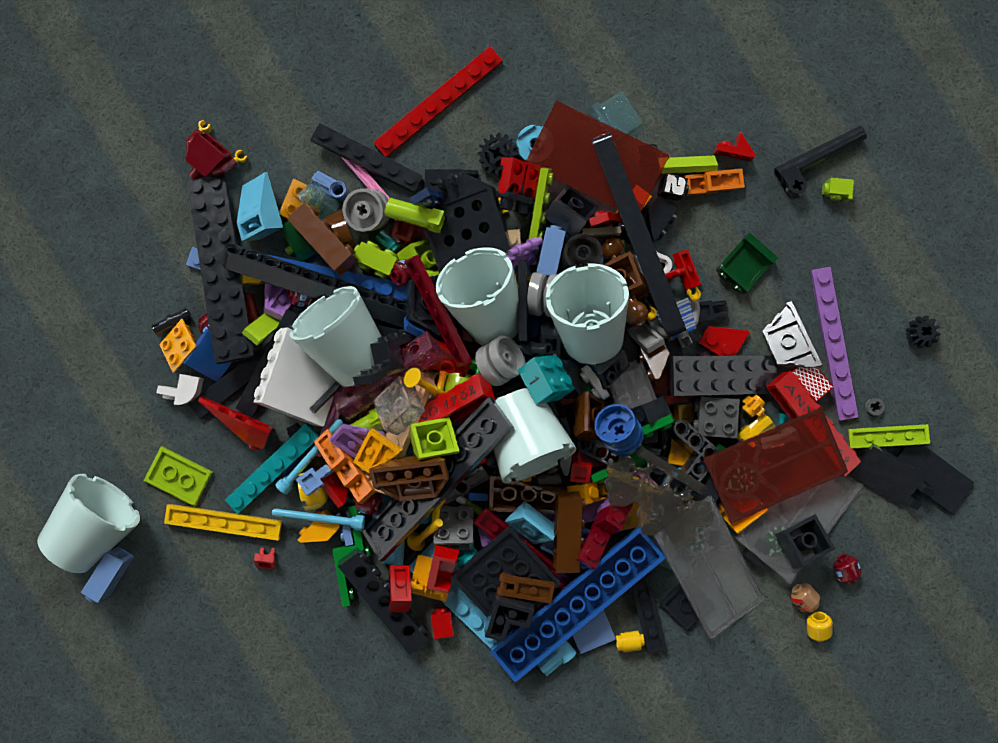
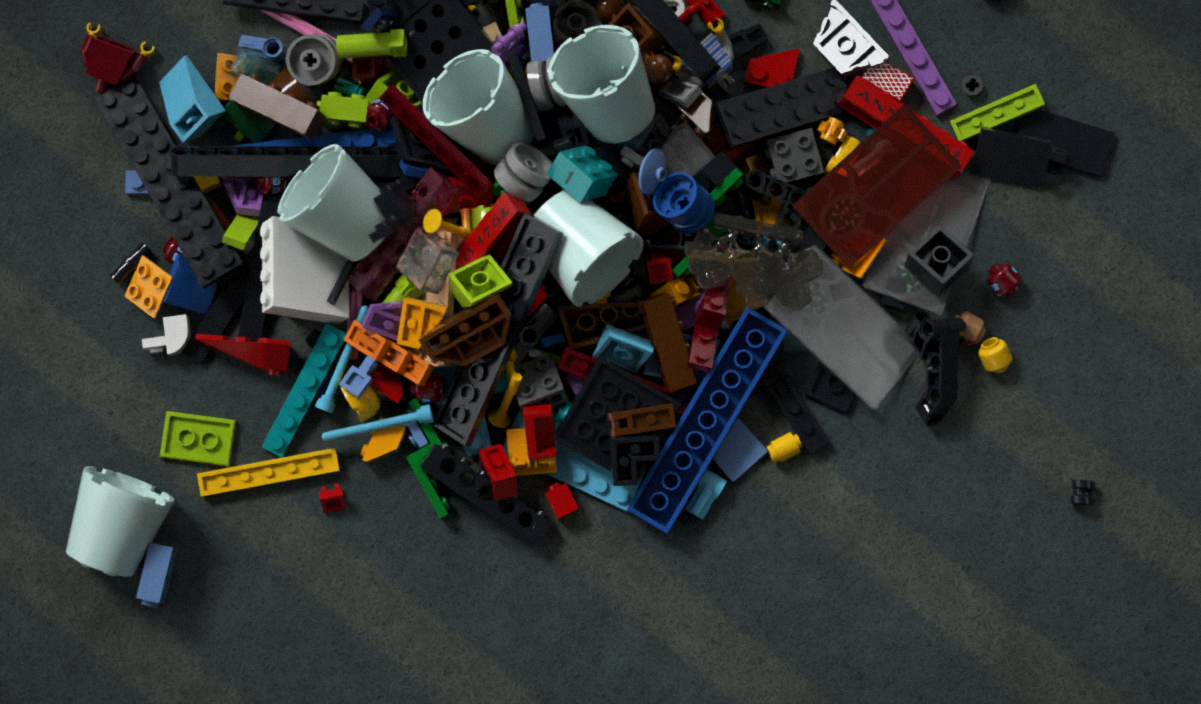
camera: 20 degrees left, 5 degrees down
(603, 397) = (652, 171): none -> medium blue dish
(778, 610) = (937, 347): none -> black connector

